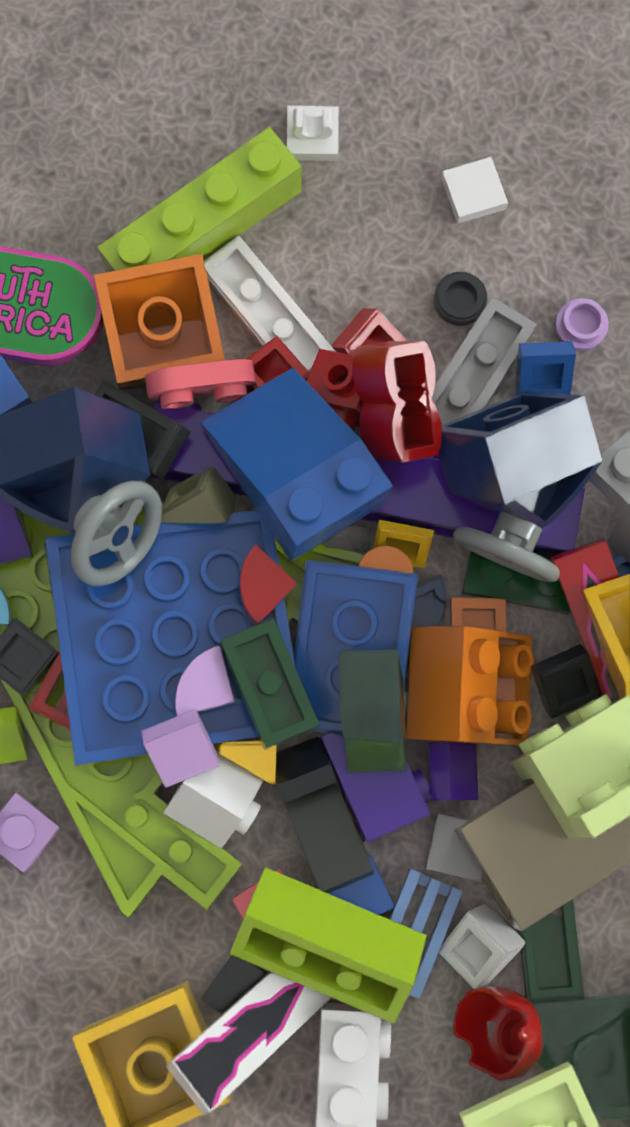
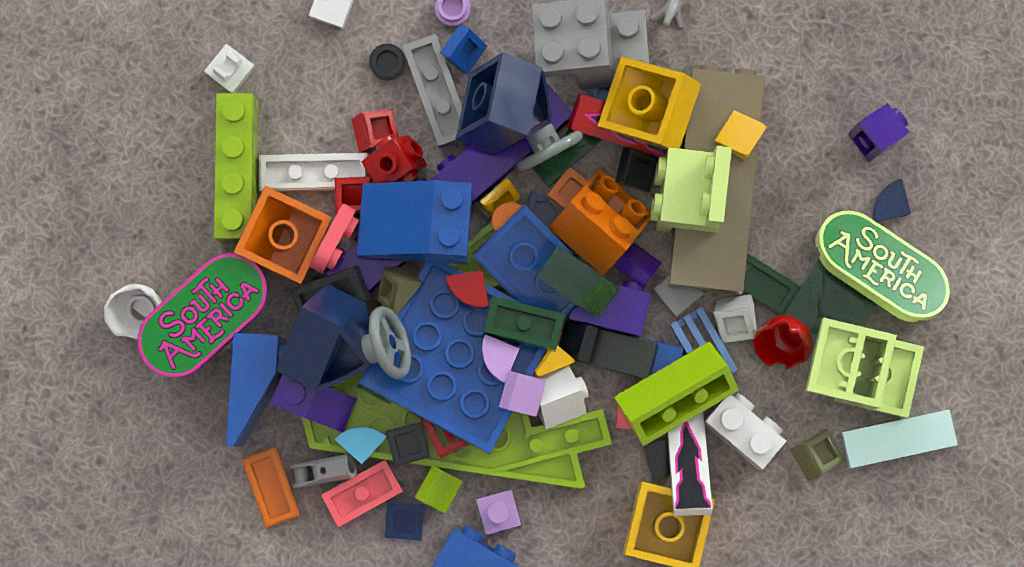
camera: 45 degrees left, 5 degrees up
(396, 393) = (423, 141): red brick -> none

